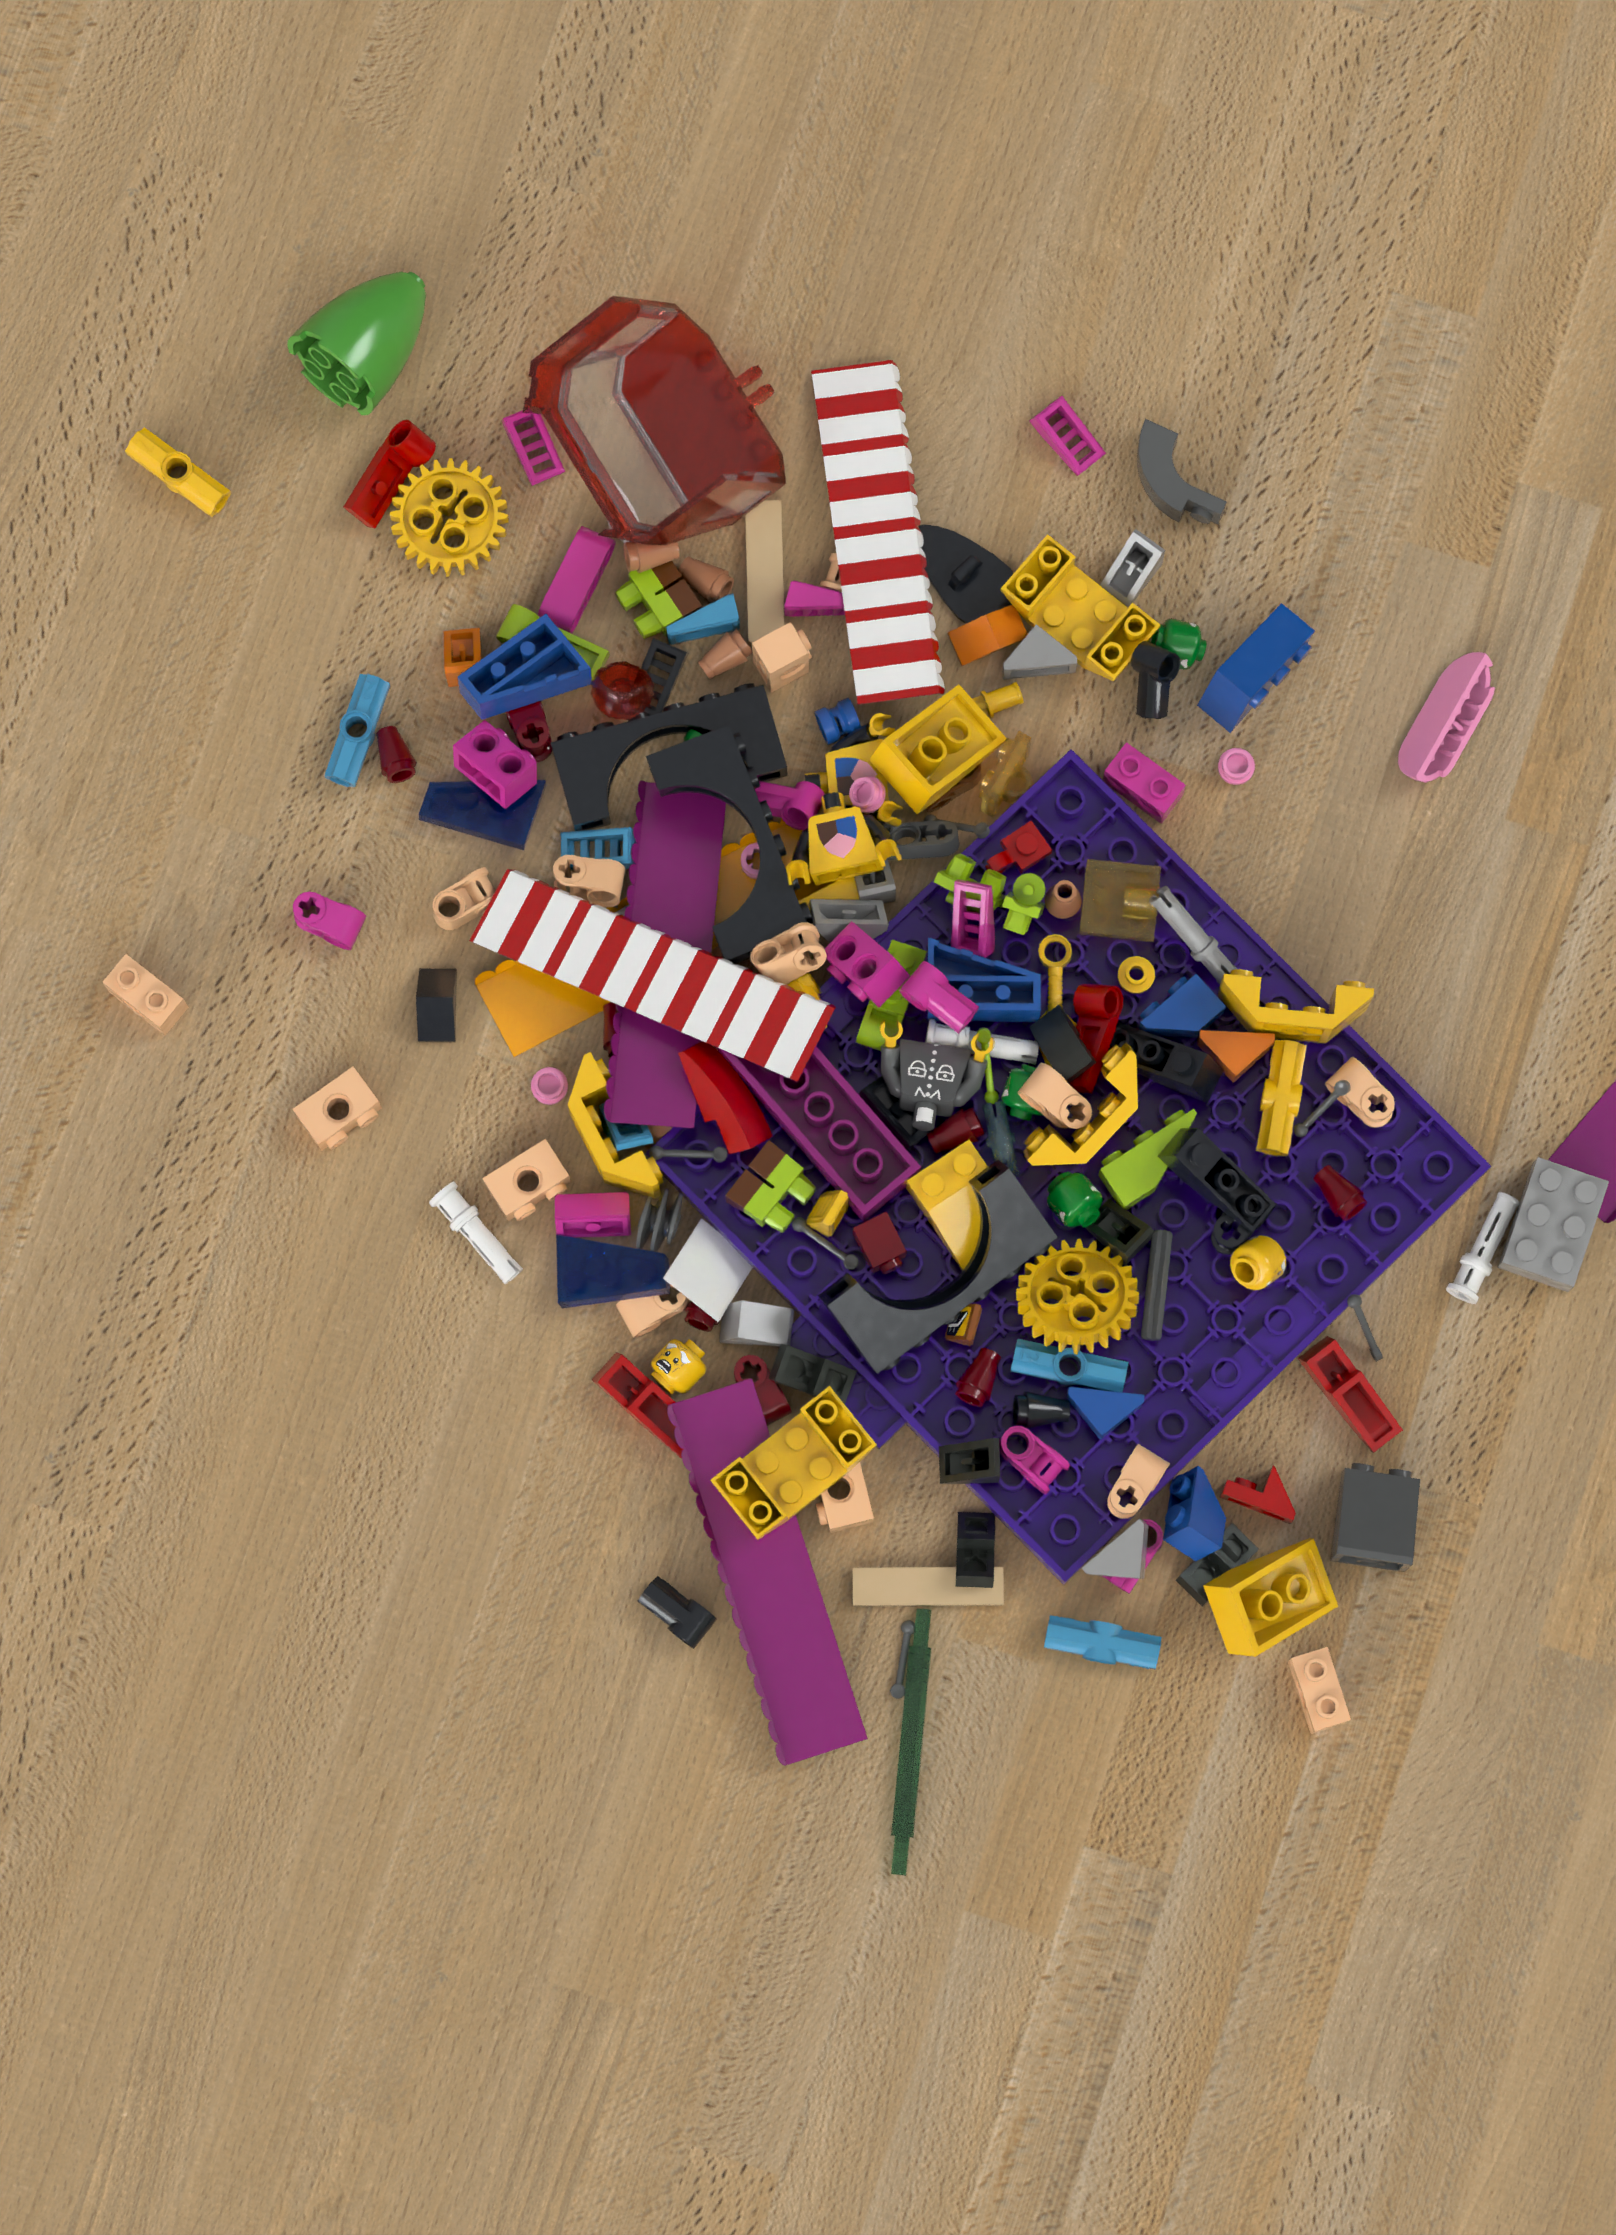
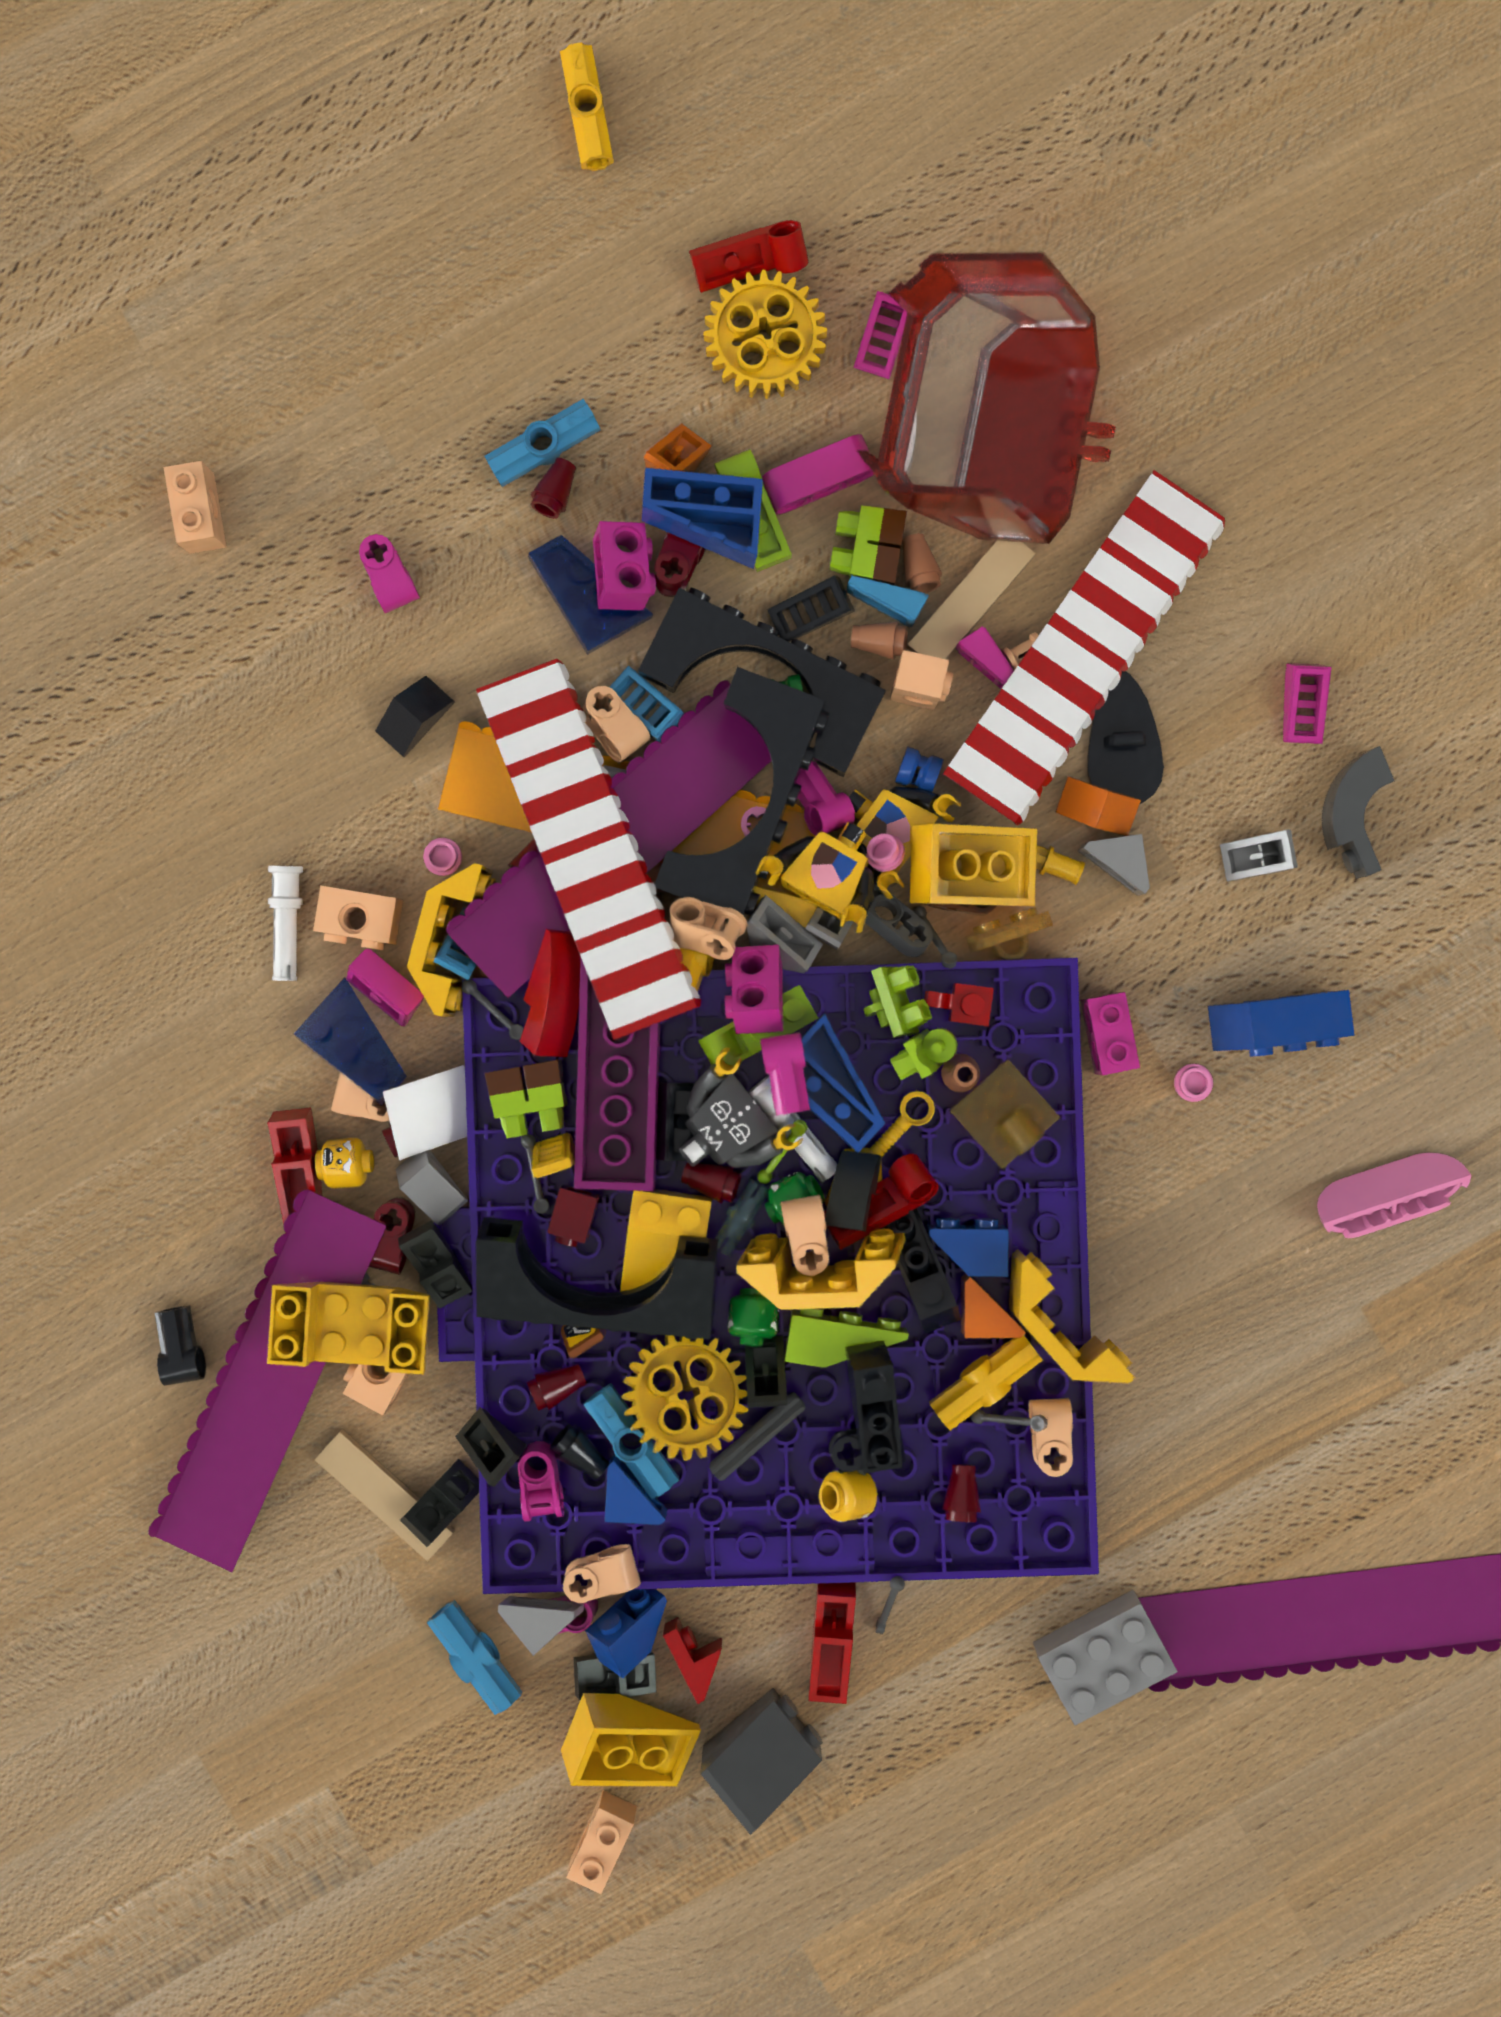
camera: 40 degrees right, 10 degrees up
(346, 1089) = (243, 720): light nougat brick -> none
(362, 339) = (824, 122): bright green cylinder -> none
(466, 897) = (509, 652): light nougat piece -> none
(622, 690) = (771, 595): clear red hair -> none
(646, 557) = (886, 507): nougat cone -> none
(659, 1221) = (425, 1041): dark grey piece -> none
(898, 1689) = (294, 1549): dark grey hinge -> none
(911, 1742) = (266, 1599): clear green axle -> none
(960, 939) = (851, 1038): dark pink slope -> none
(1077, 610) = (1184, 852): yellow slope -> none
(1136, 986) = (954, 1174): yellow plate -> none
(1156, 671) = (1200, 957): black piece -> none
(1182, 639) = (1237, 947): green head -> none
(1203, 947) = (1034, 1210): light grey pin -> none
(1475, 1267) = (1018, 1636): white pin -> none

